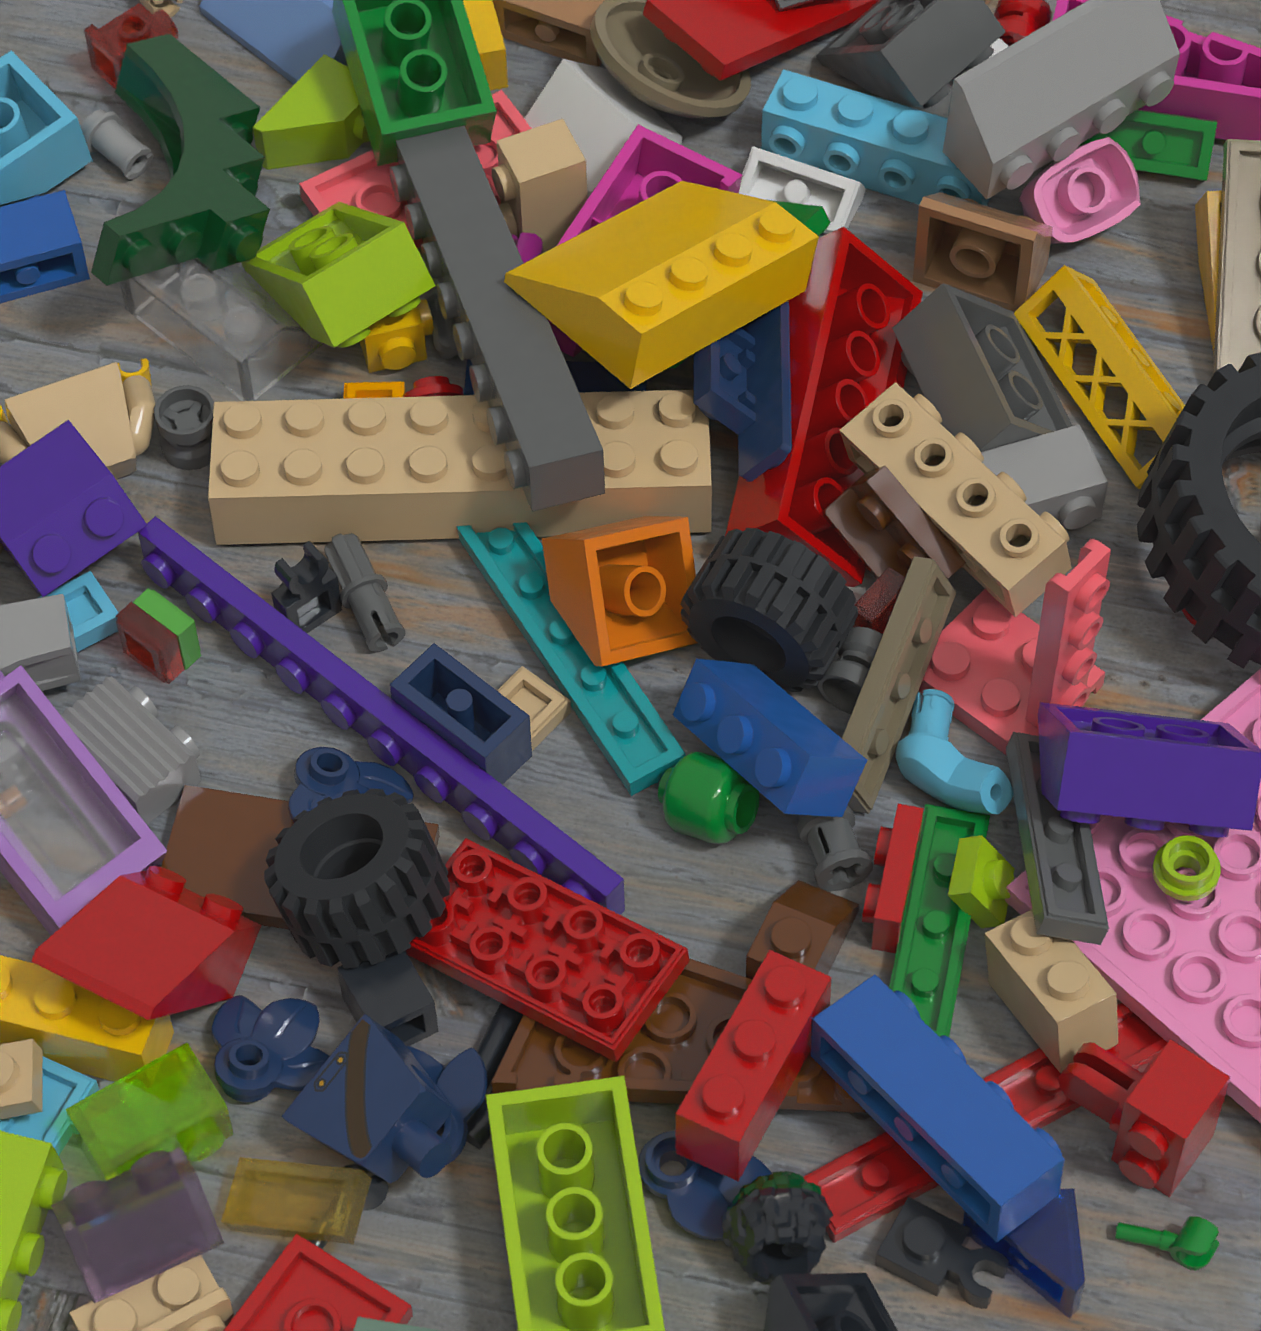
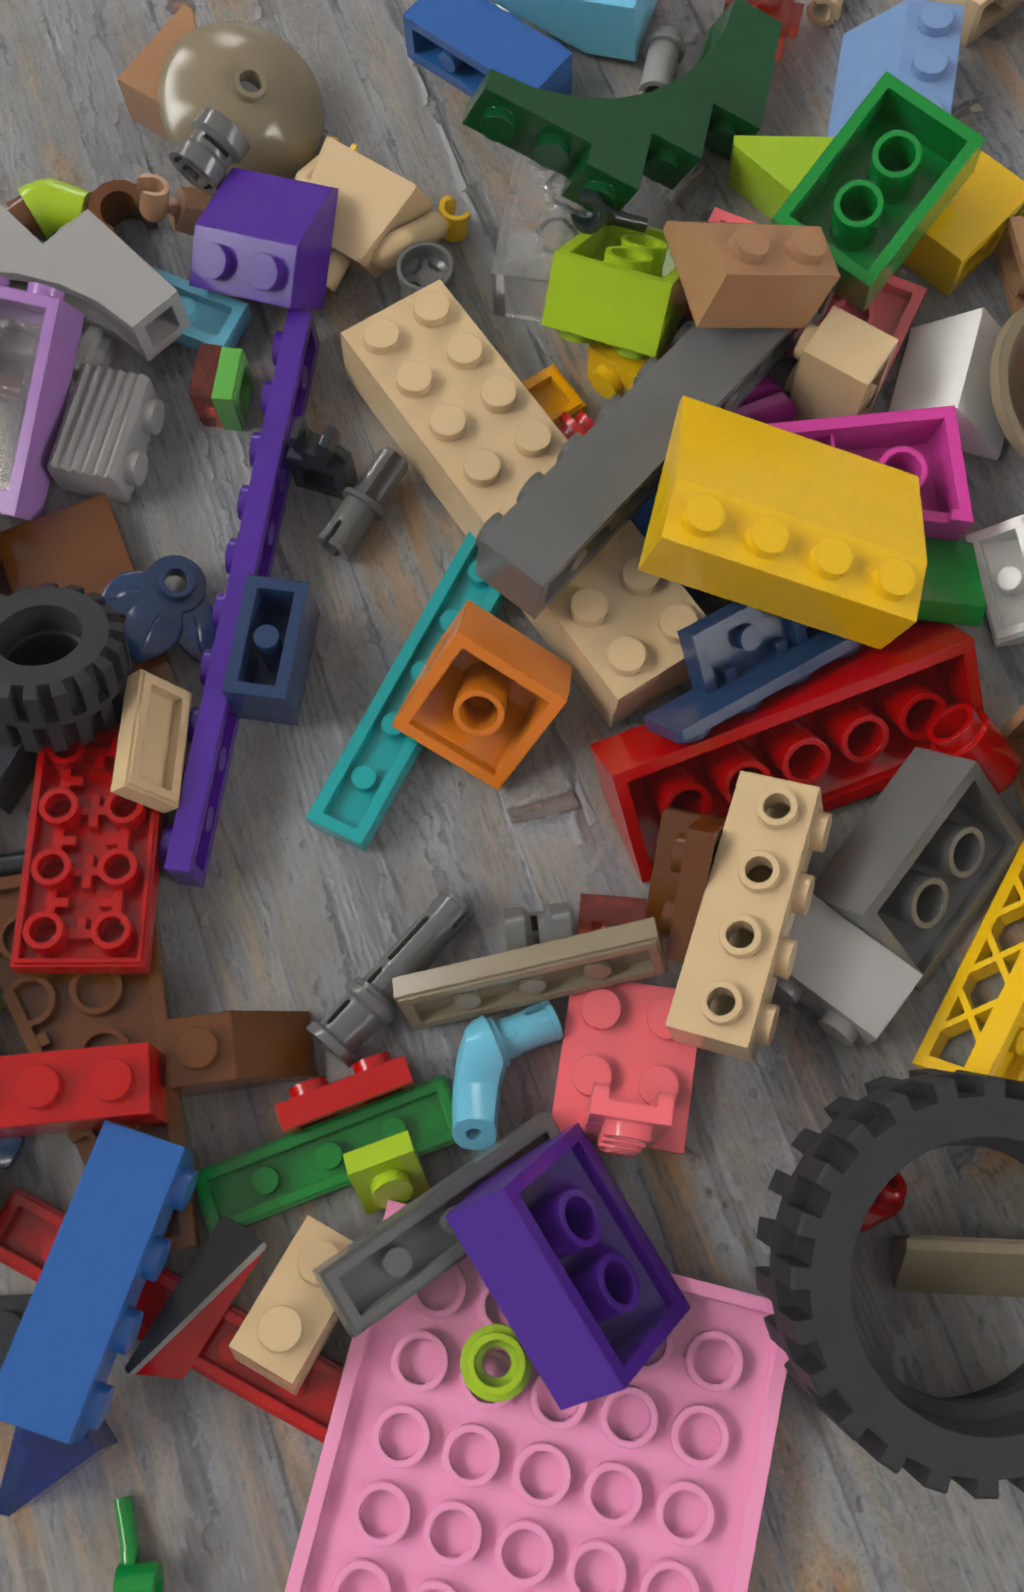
camera: 60 degrees right, 15 degrees up
(266, 249) = (605, 215): none -> black hand
(429, 166) = (751, 272): none -> medium nougat slope
(488, 840) = (152, 742): none -> tan tile
(537, 699) = (338, 692): tan tile -> none
(707, 799) = (329, 890): green head -> none
(769, 738) = (391, 907): blue brick -> none
(770, 607) = (524, 826): black tyre -> none
(910, 282) = (974, 736): none -> red brick
(991, 1060) = (198, 1302): none -> sticker
(1158, 1114) = (215, 1494): red brick -> none

